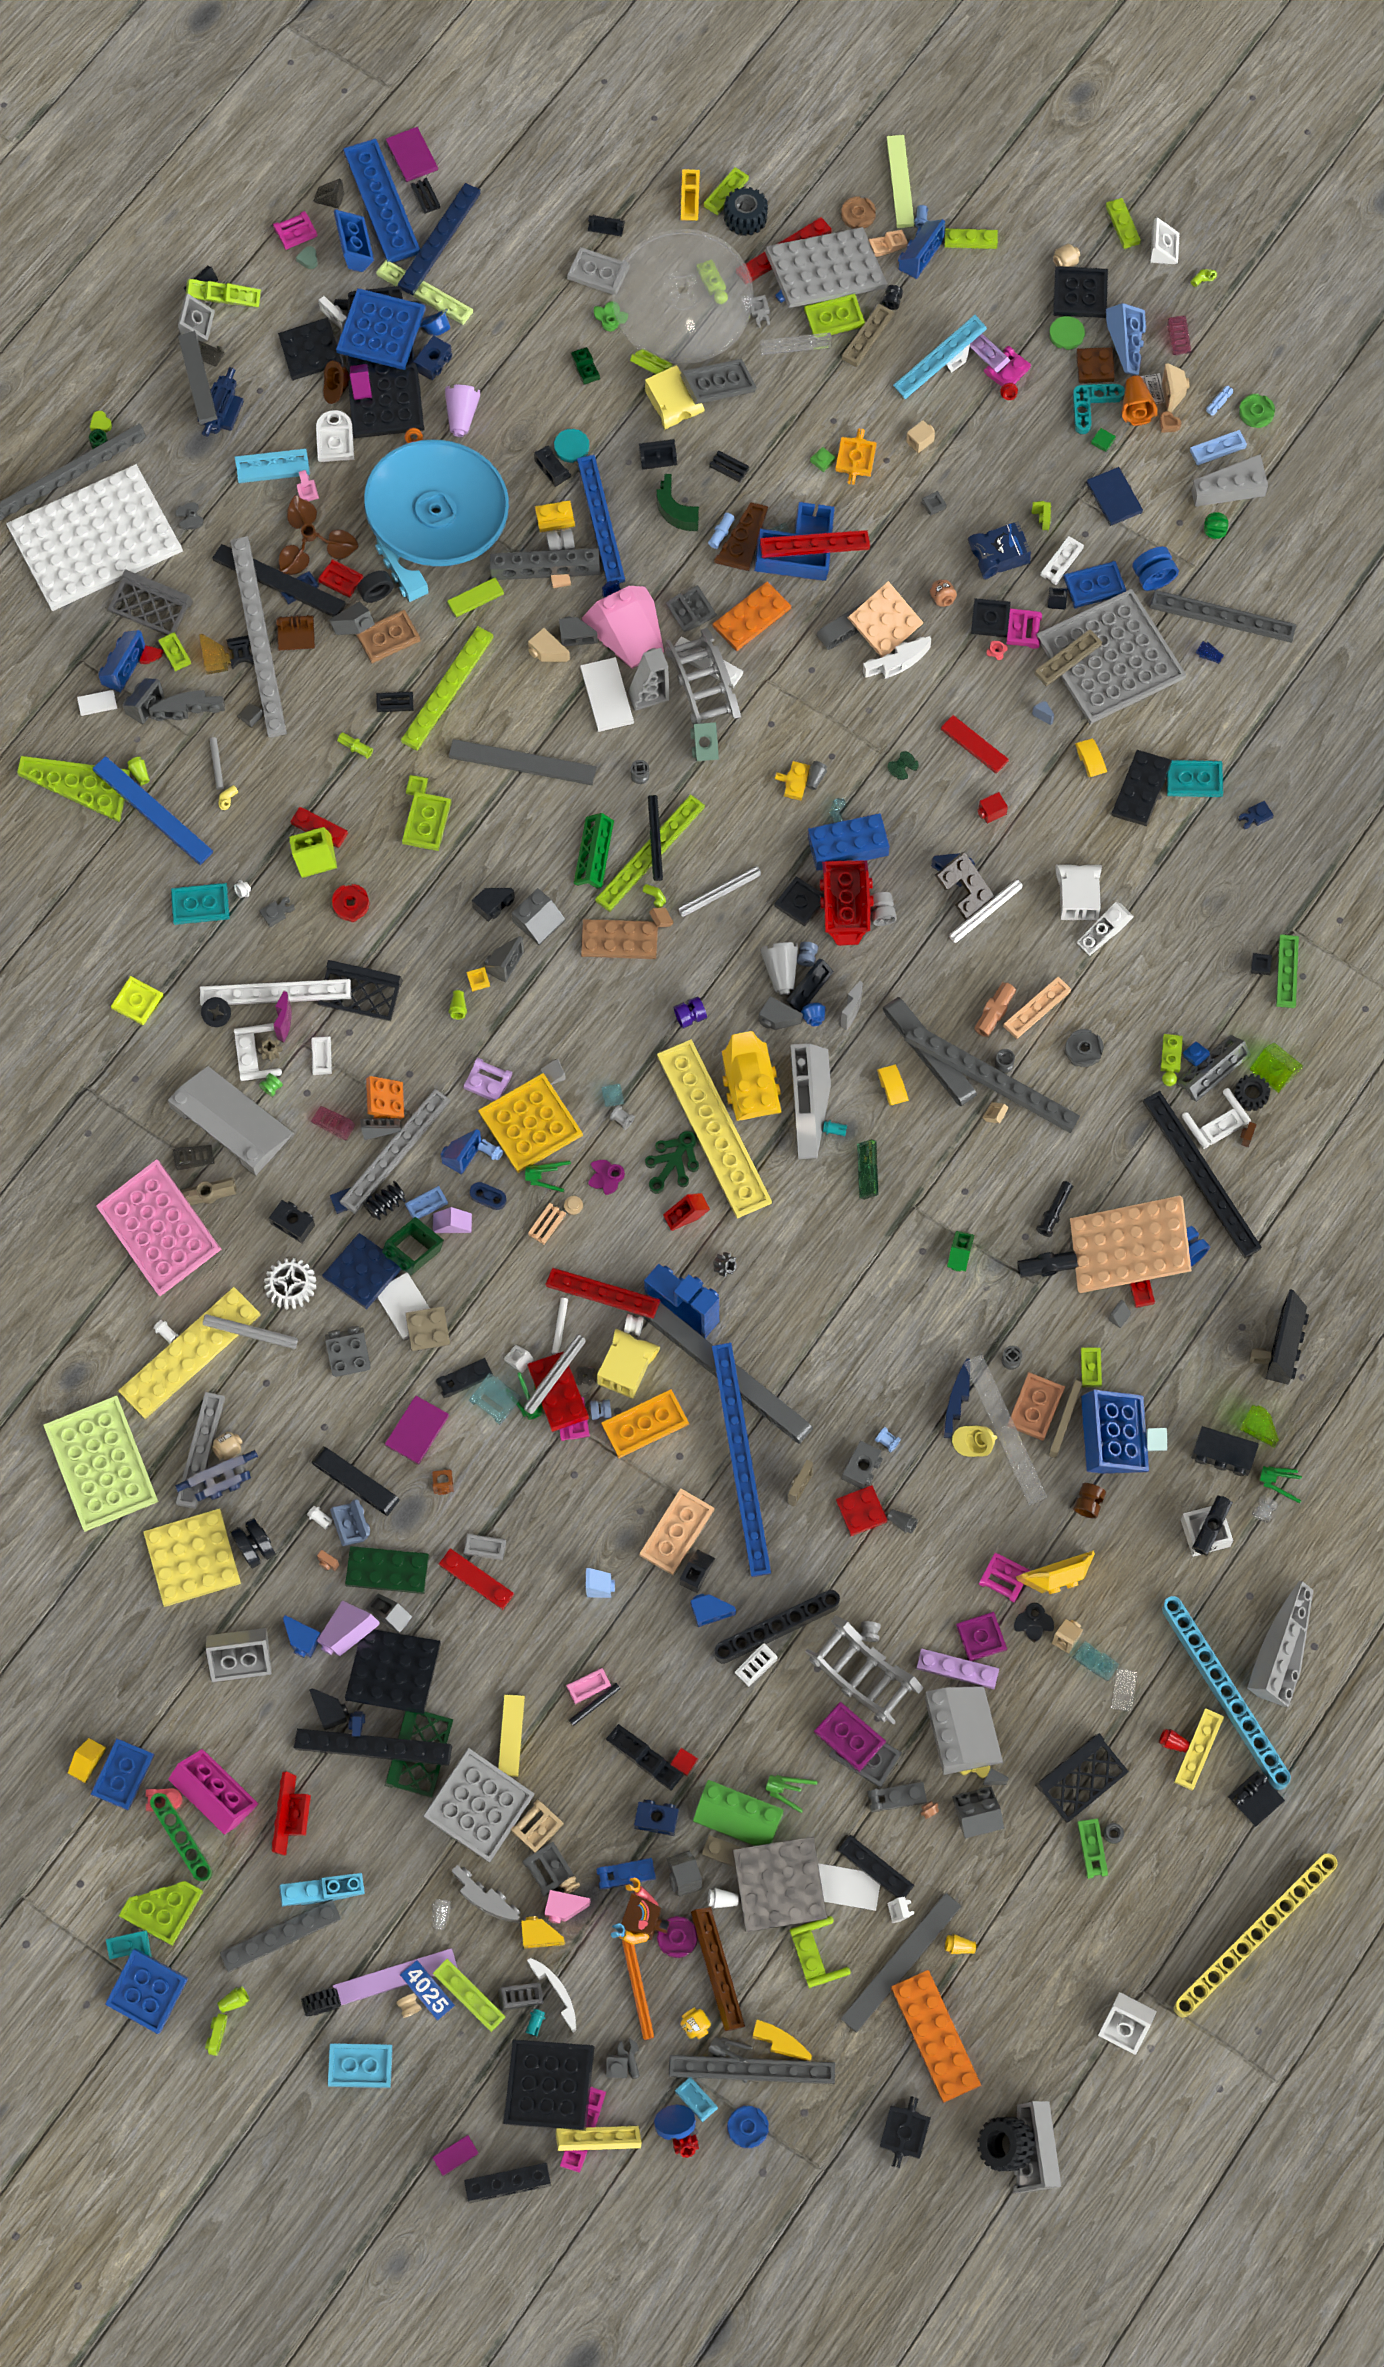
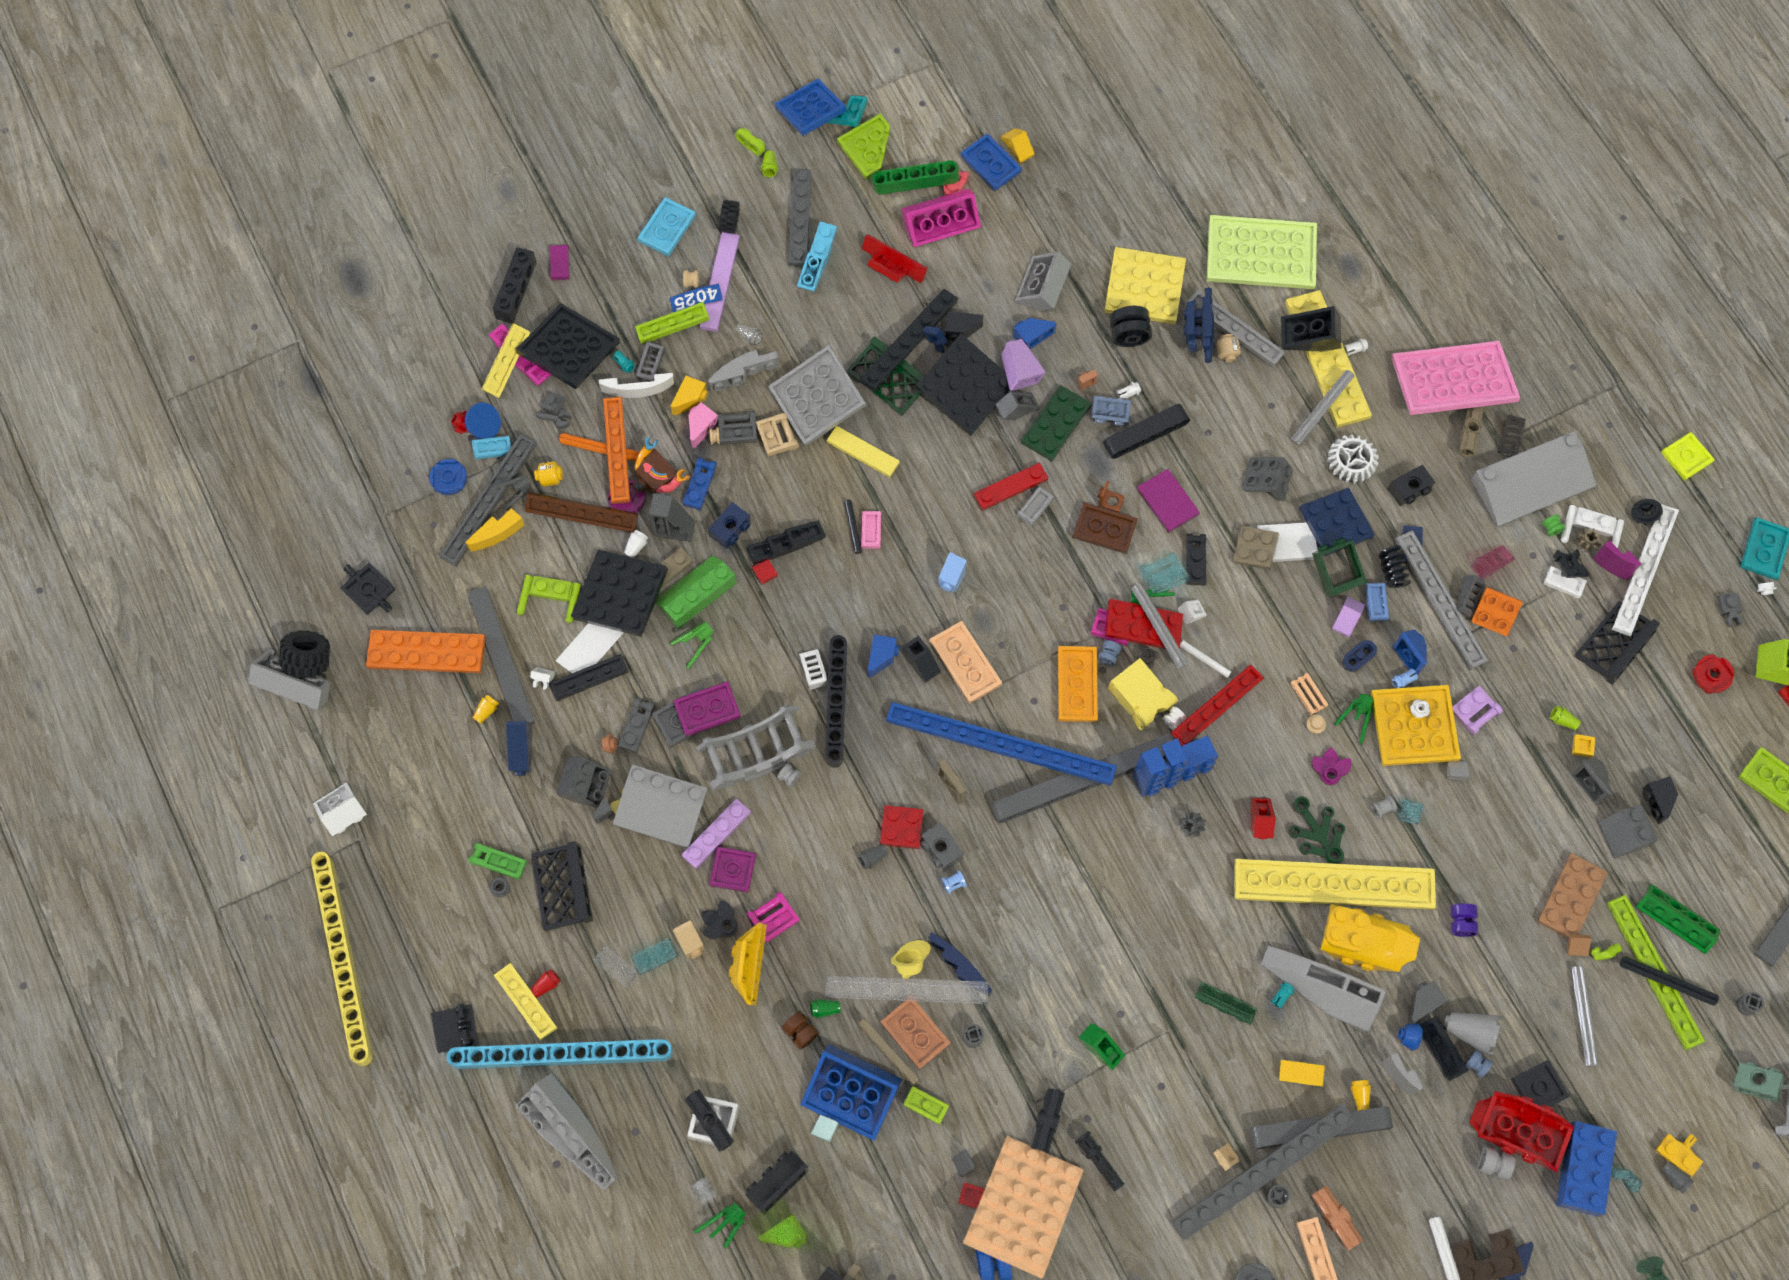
camera: 115 degrees right, 0 degrees up
(174, 1375) = (1312, 330): none -> black slope
(310, 1048) = (1570, 571): none -> black piece
(476, 1472) = (1105, 528): none -> reddish brown plate
(516, 1127) = (1420, 713): none -> white plate
(636, 1970) = (616, 450): none -> orange tile
(883, 1033) = (1361, 1093): none -> yellow cone
(980, 1886) = (519, 747): none -> dark blue slope
(1059, 1493) = (823, 1008): none -> green cone

